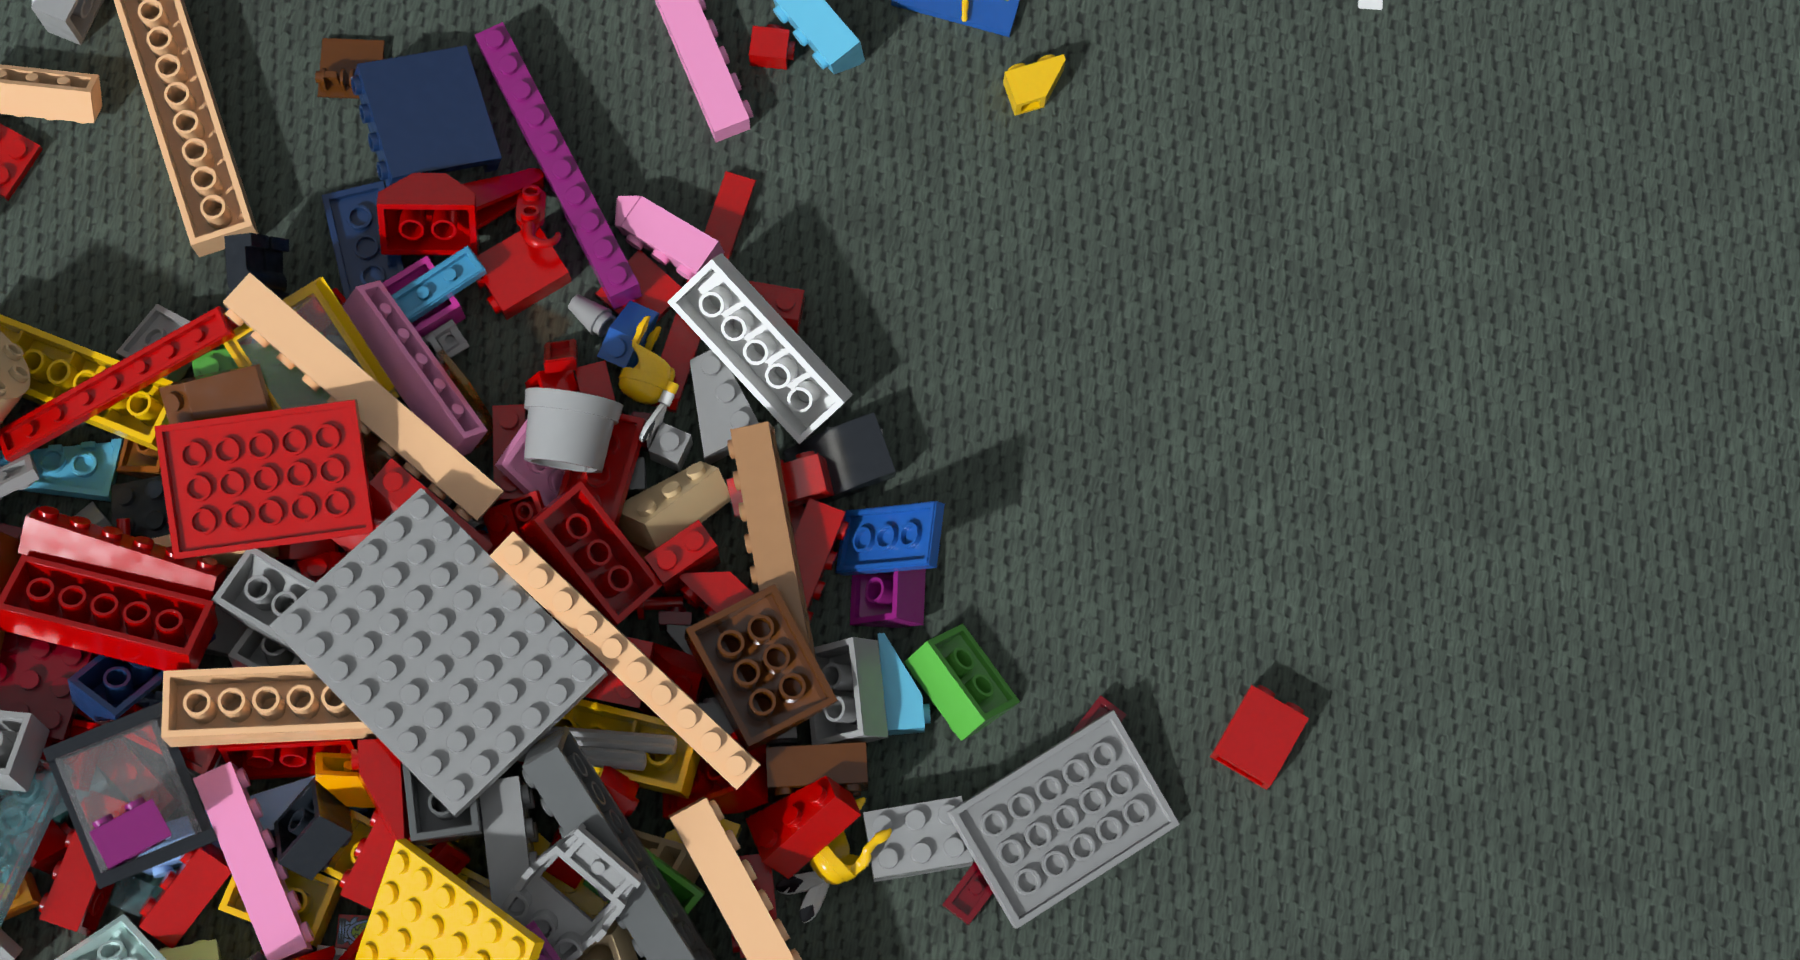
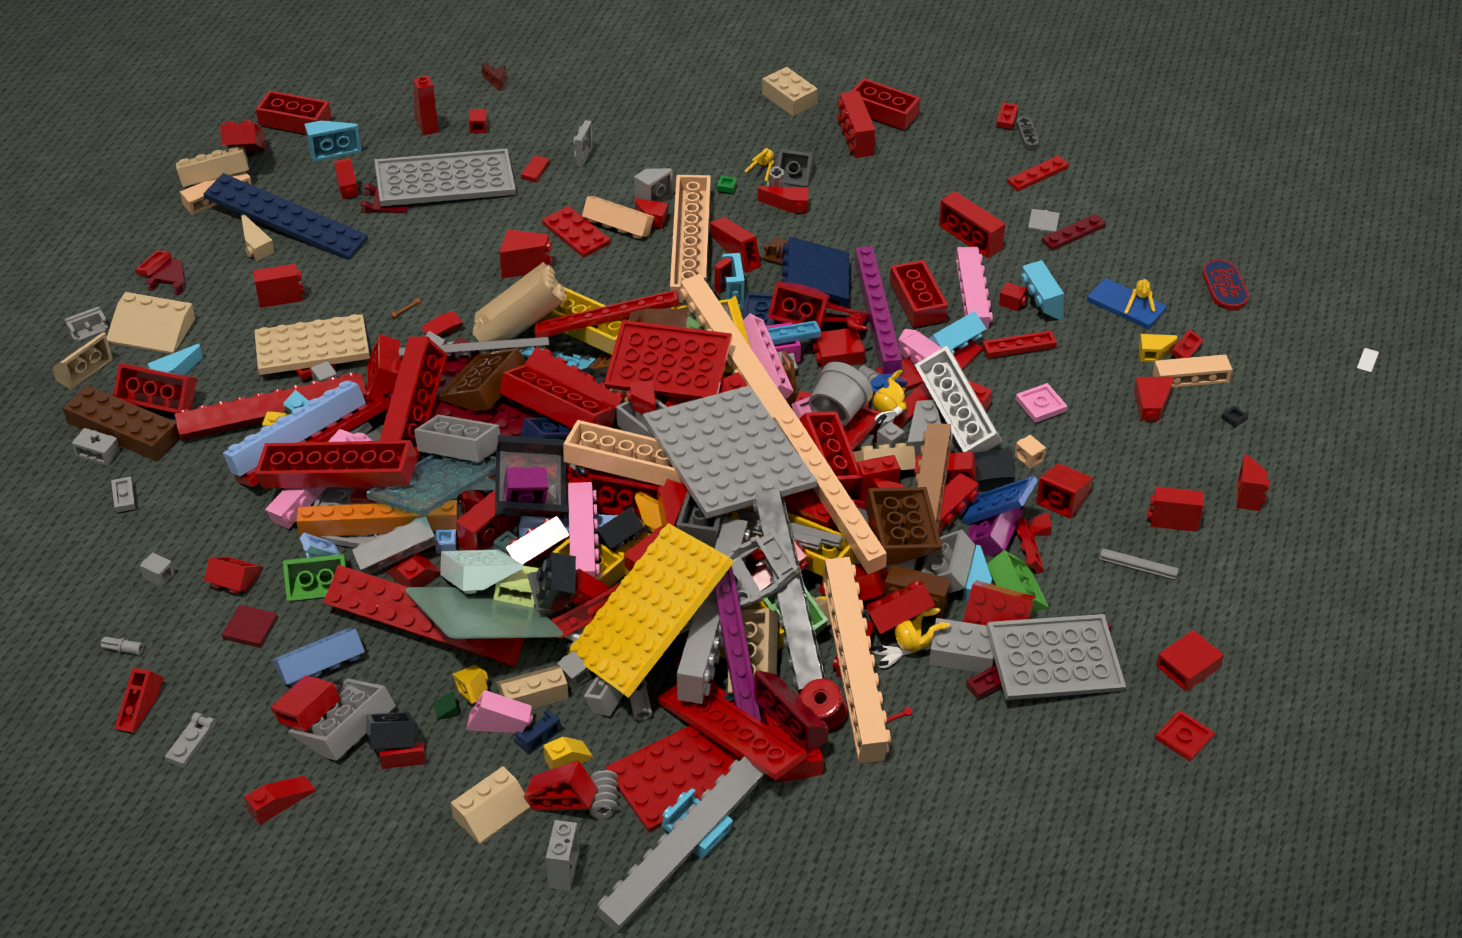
camera: 25 degrees right, 30 degrees down
(30, 930) = (446, 540): none -> light blue slope
(90, 56) = (656, 209): none -> red slope
(254, 576) = (642, 396): none -> red slope
(263, 84) = (737, 240): none -> red slope
(270, 178) = (722, 270): none -> red plate
(304, 208) = (735, 284): none -> medium azure panel
(613, 100) = (918, 293): none -> red brick
(704, 178) = (960, 332): none -> medium azure slope
(812, 152) = (1019, 344): none -> red plate
(885, 274) = (1041, 402): none -> bright pink plate
(898, 391) = (1030, 451): none -> light nougat brick
(951, 756) = (996, 603): none -> red brick
(959, 540) = (1041, 525): none -> red slope
(959, 596) = (1029, 545): none -> red plate
(977, 456) = (1063, 490): none -> red slope
(1058, 200) = (1152, 396): none -> red slope
(1082, 62) = (1187, 345): none -> red plate
(1105, 118) = (1194, 370): none -> light nougat brick
(1131, 563) = (1138, 563): none -> light grey axle
(1162, 444) = (1175, 509): none -> red brick
(1195, 190) = (1234, 416): none -> black tile
(1262, 348) = (1251, 485): none -> red slope
(1287, 879) = (1184, 735): none -> red tile

